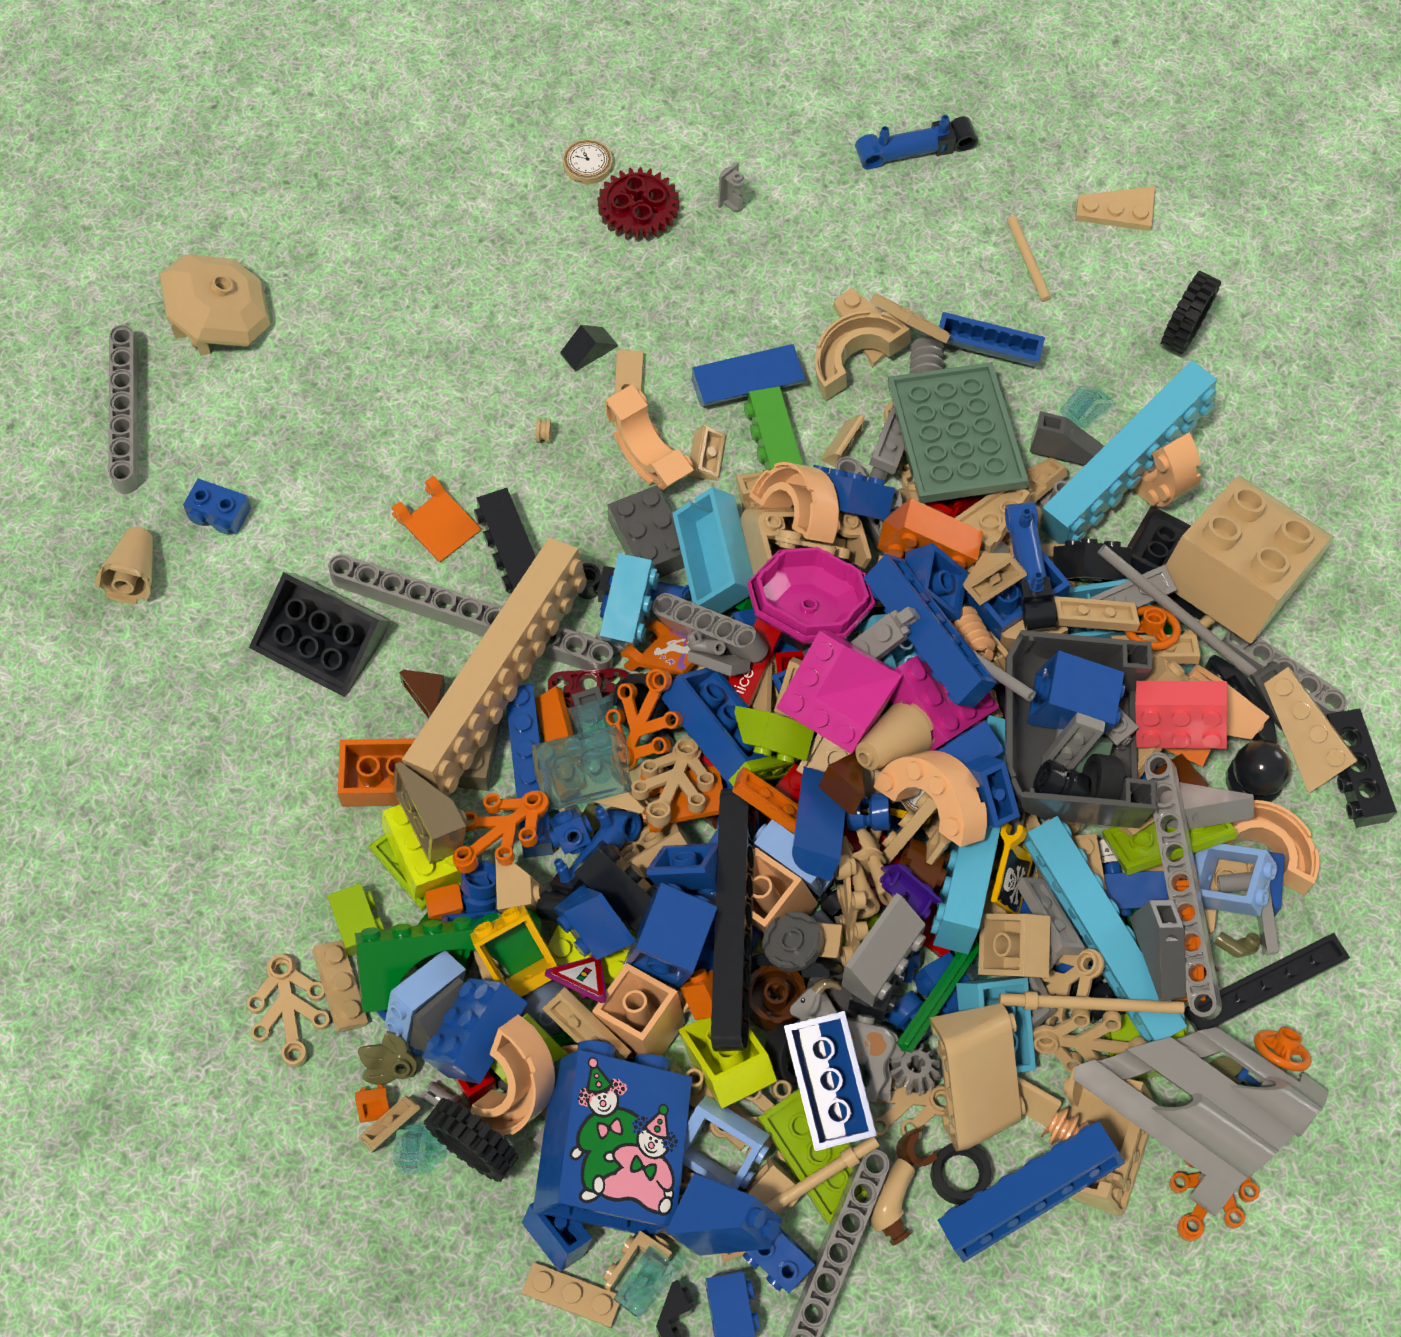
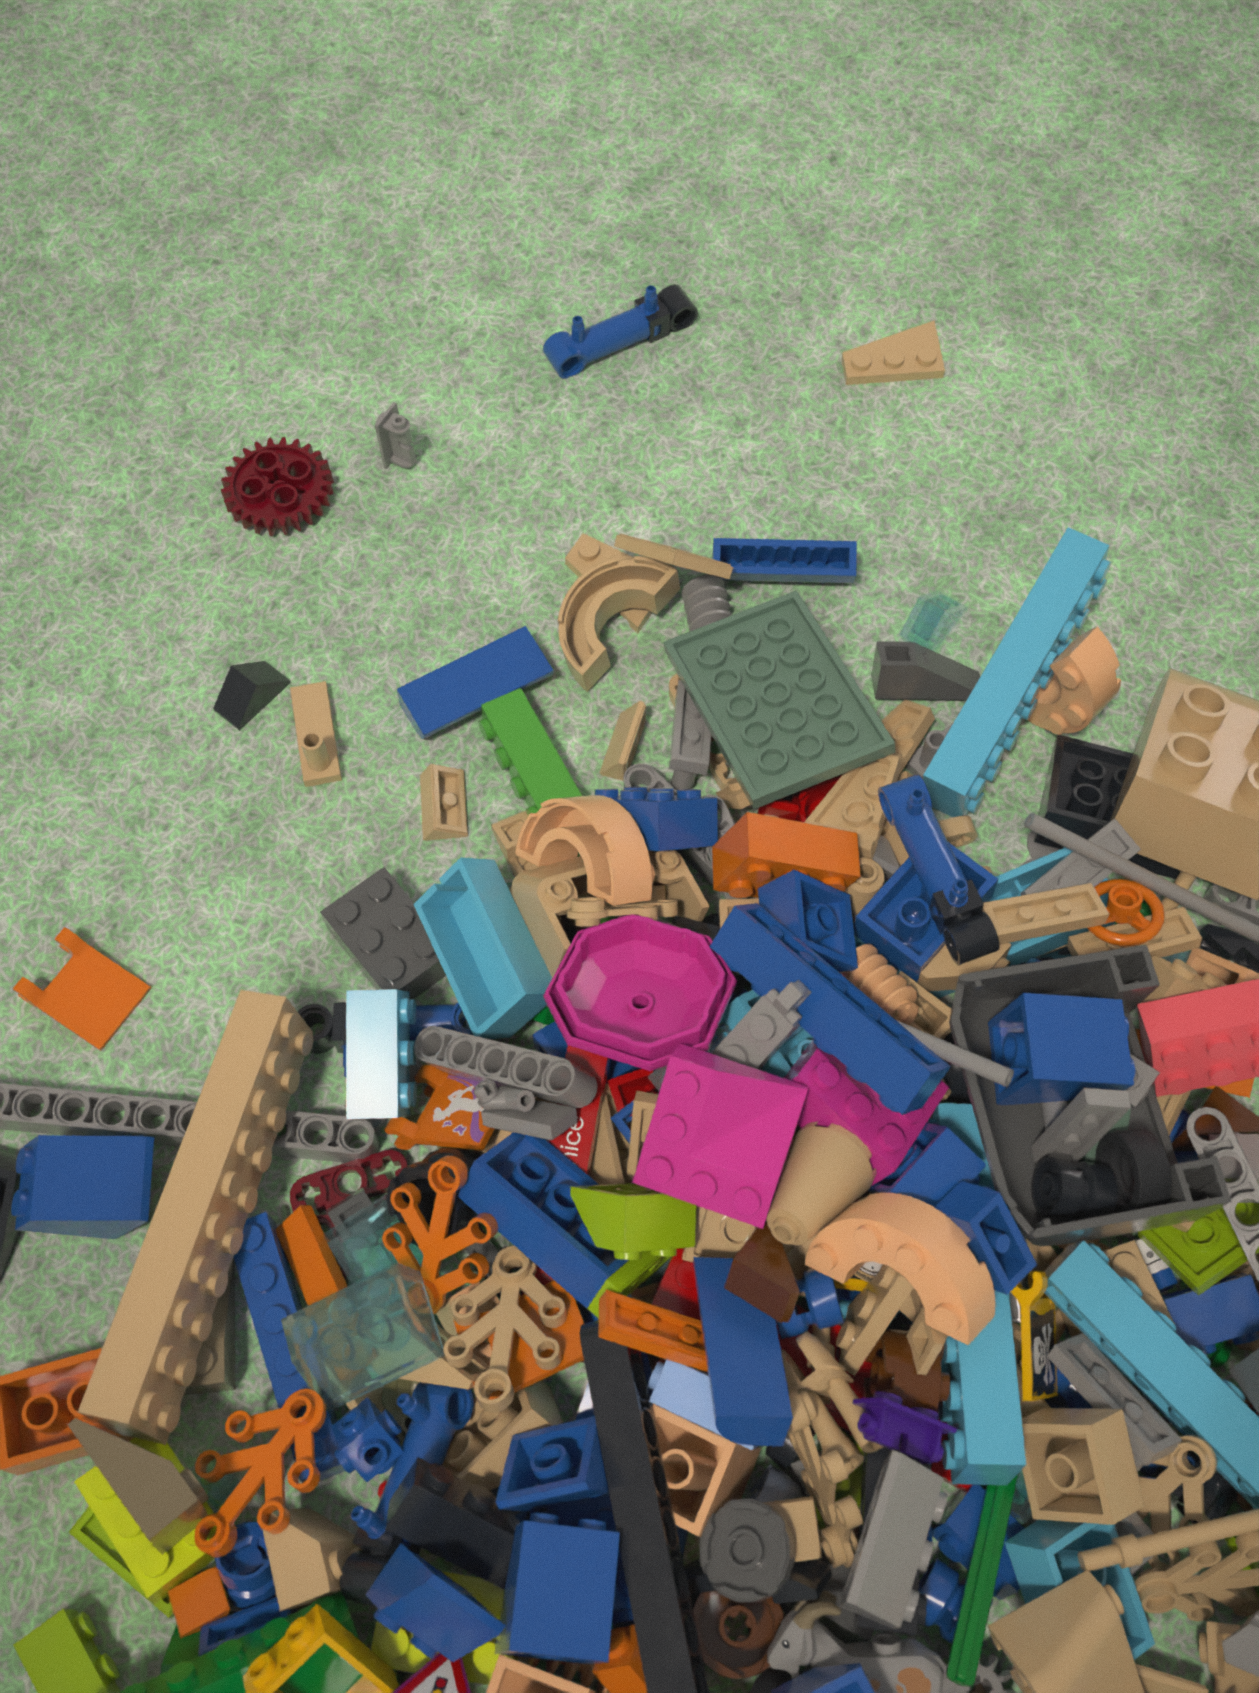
camera: 10 degrees left, 0 degrees up
(420, 638) = (83, 1185): none -> blue slope
(424, 688) = (109, 1254): reddish brown slope -> none
(506, 535) = (185, 989): black brick -> none
(543, 430) = (210, 823): tan bush -> none
(587, 161) = (199, 446): tile -> none
(641, 440) = (349, 810): light nougat brick -> none
(993, 575) = (889, 895): tan slope -> none
(1028, 258) = (802, 446): tan bar -> none
(1082, 563) = (1003, 832): black brick -> none
(1190, 312) = (1034, 466): black tyre -> none

